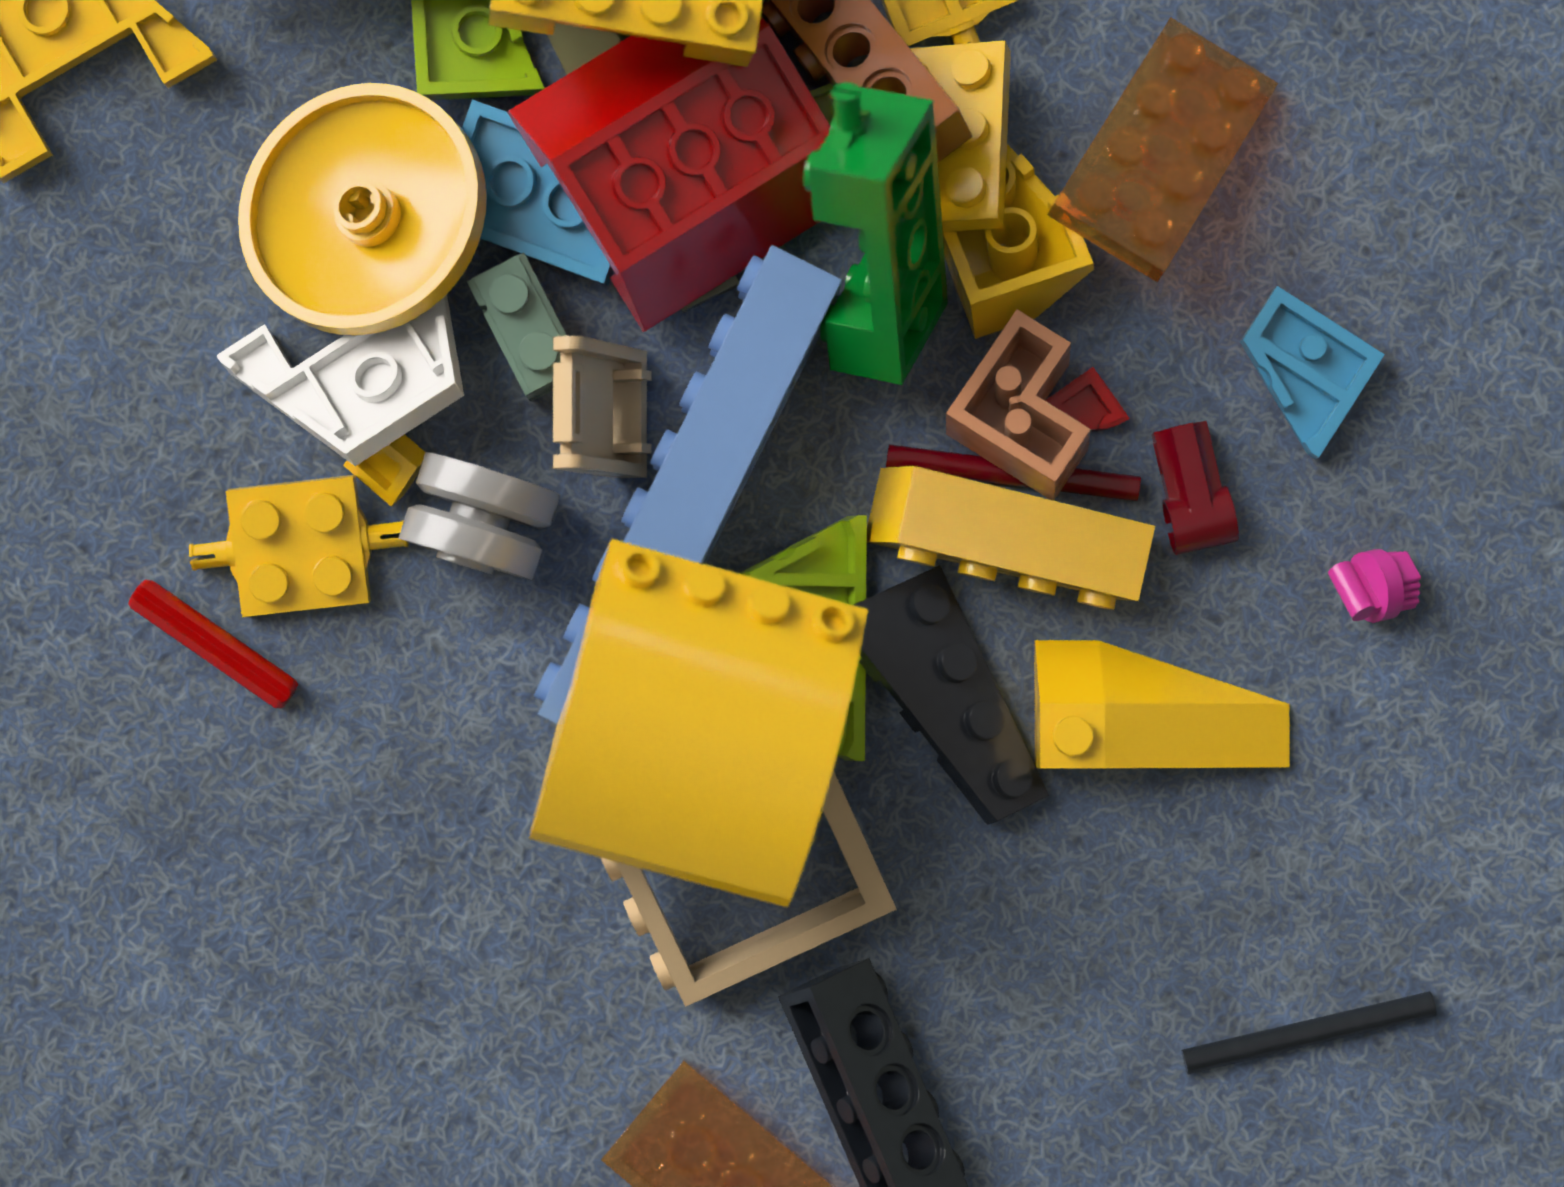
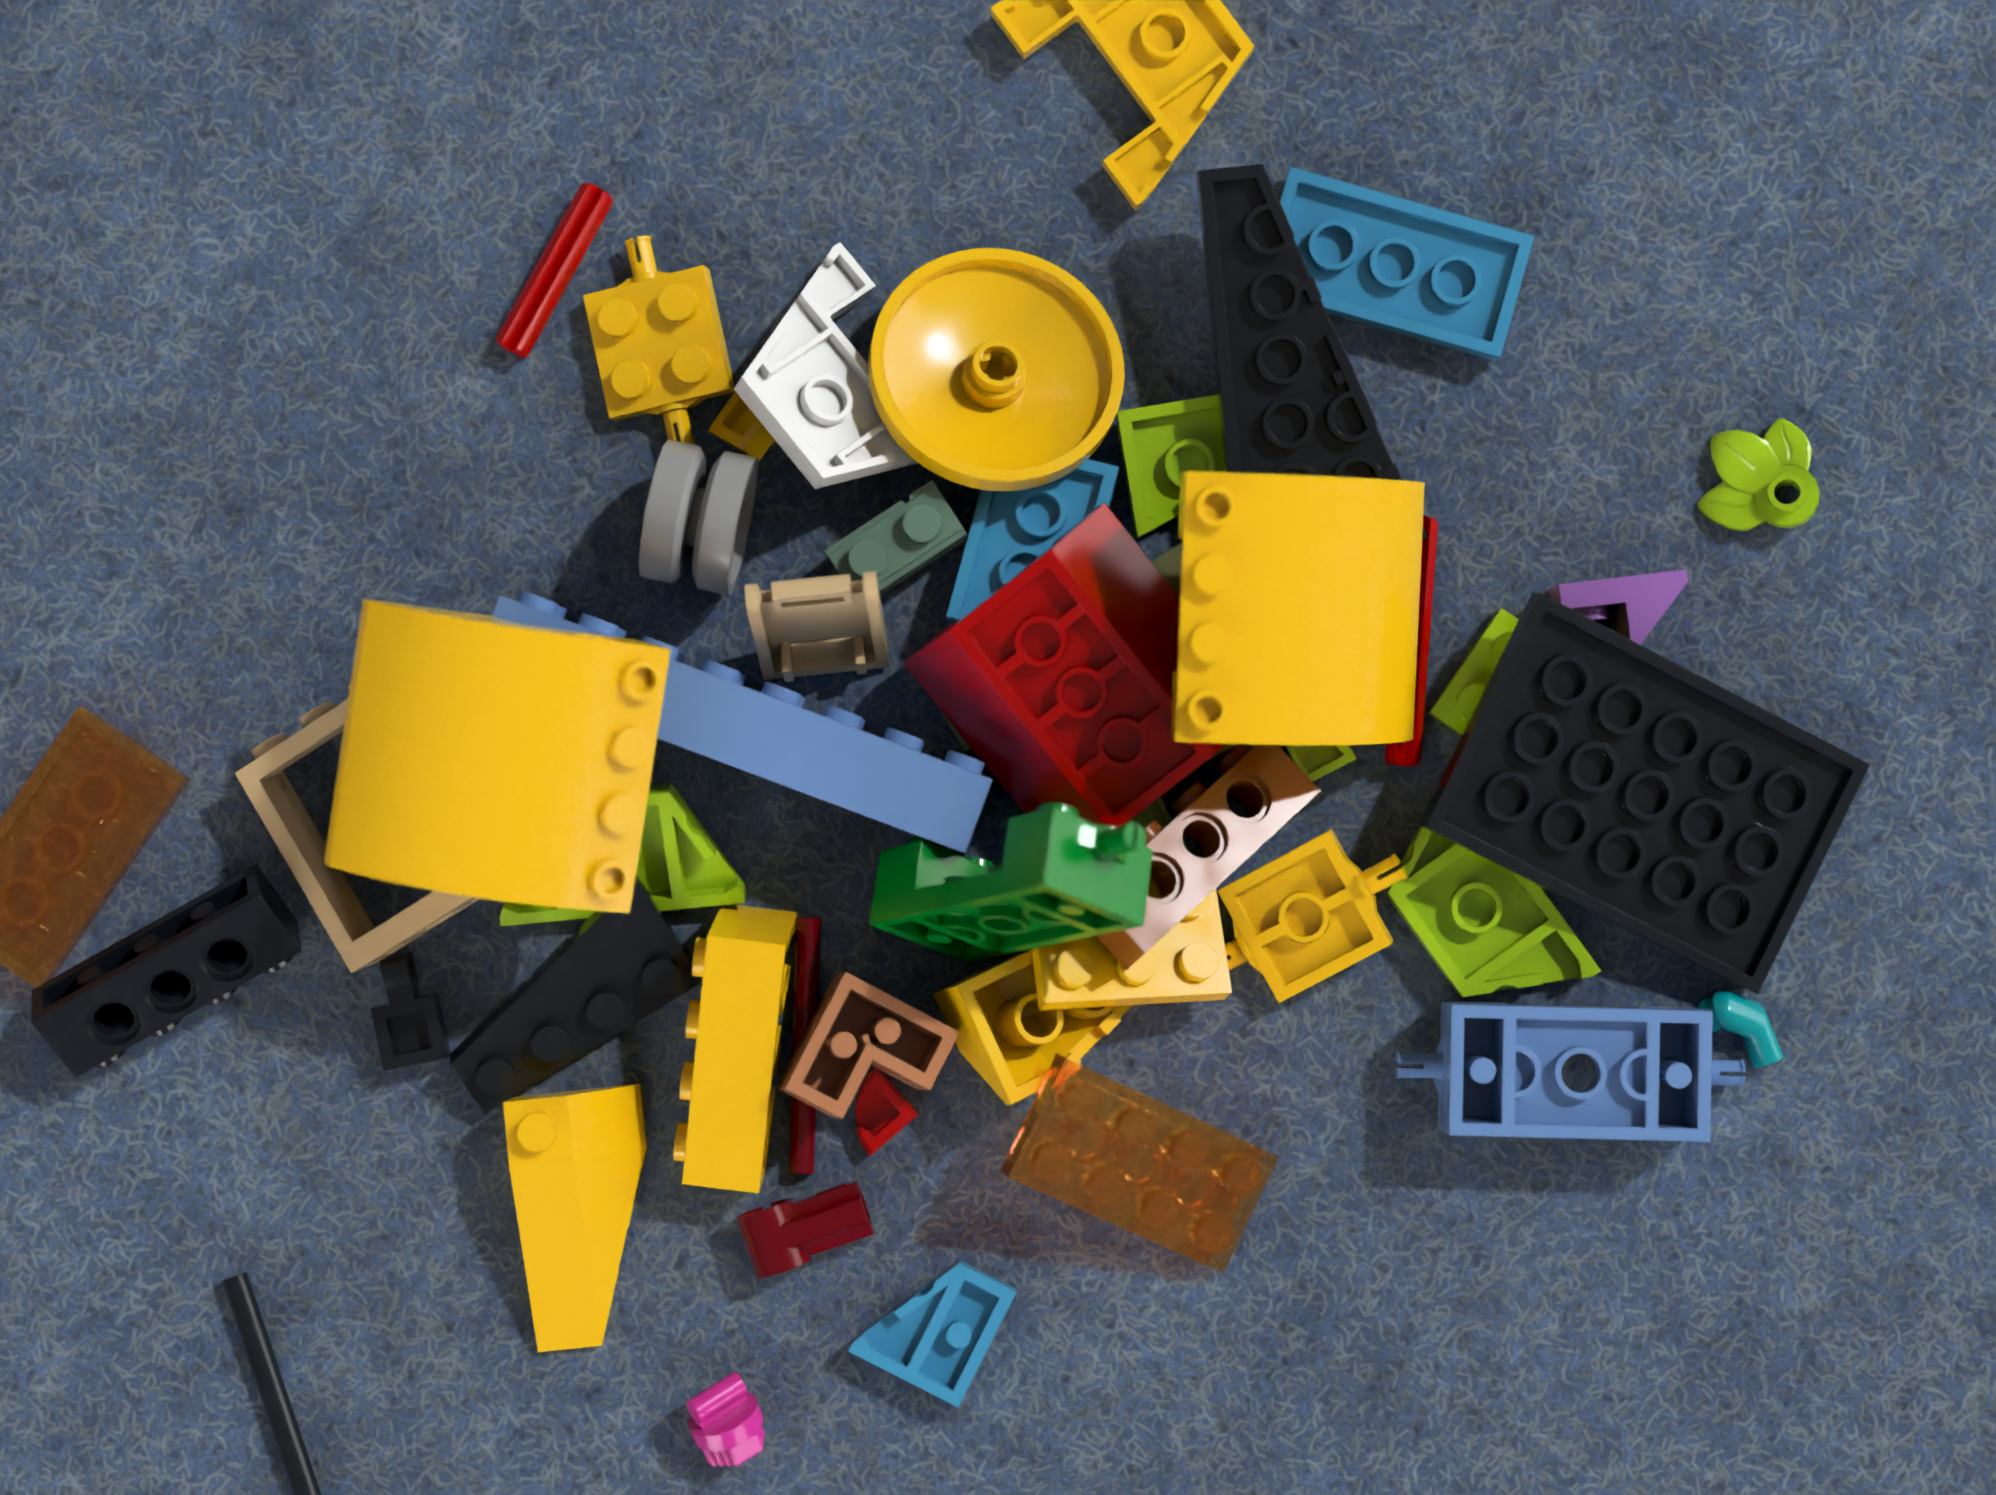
camera: 85 degrees right, 0 degrees up
(953, 861) = (410, 1025): none -> black plate

